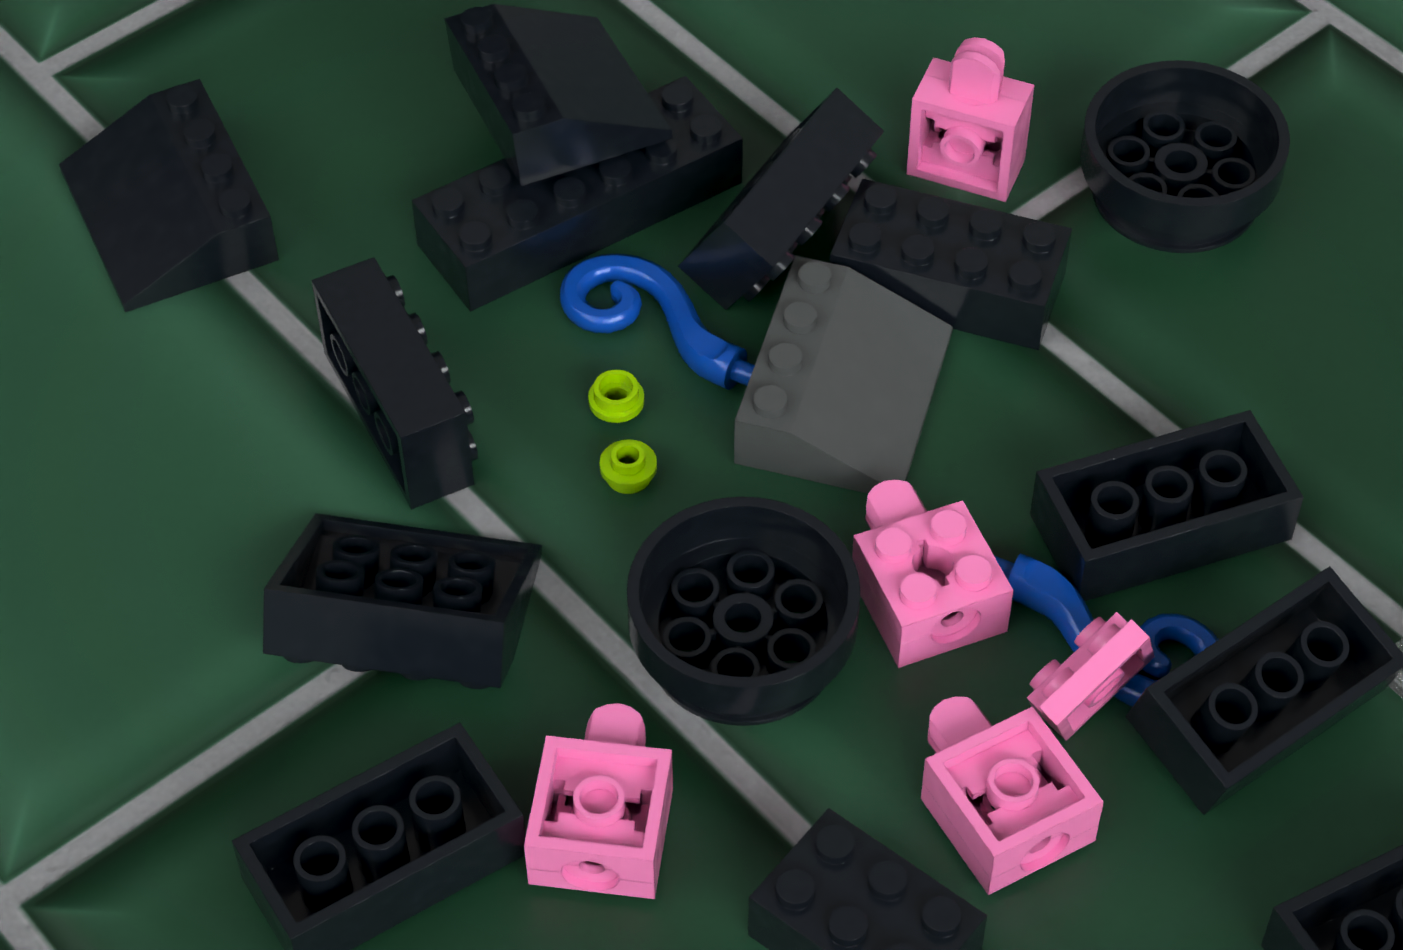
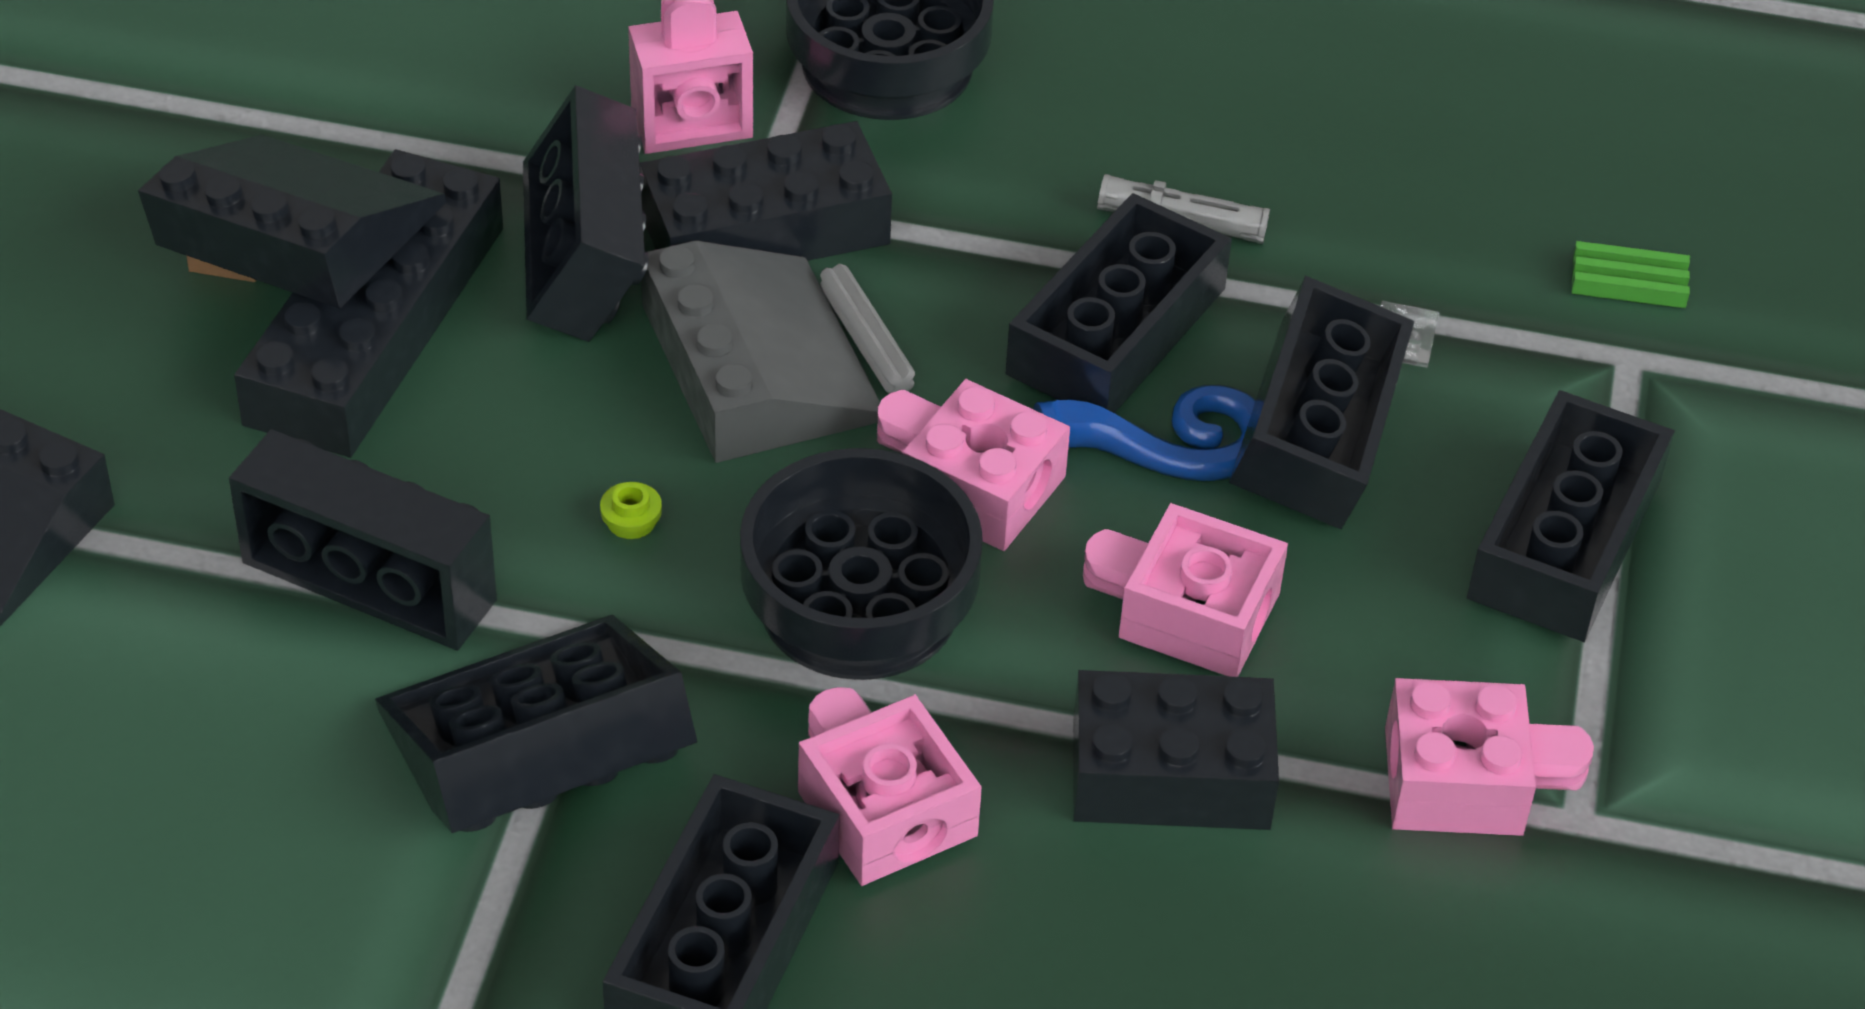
camera: 40 degrees left, 5 degrees down
(616, 396) = (566, 457): lime plate -> none
(699, 348) = (602, 380): blue plant -> none
(946, 414) = (867, 329): none -> light grey axle
(1101, 666) = (1189, 452): bright pink plate -> none
(1295, 432) = (1218, 214): none -> light grey pin

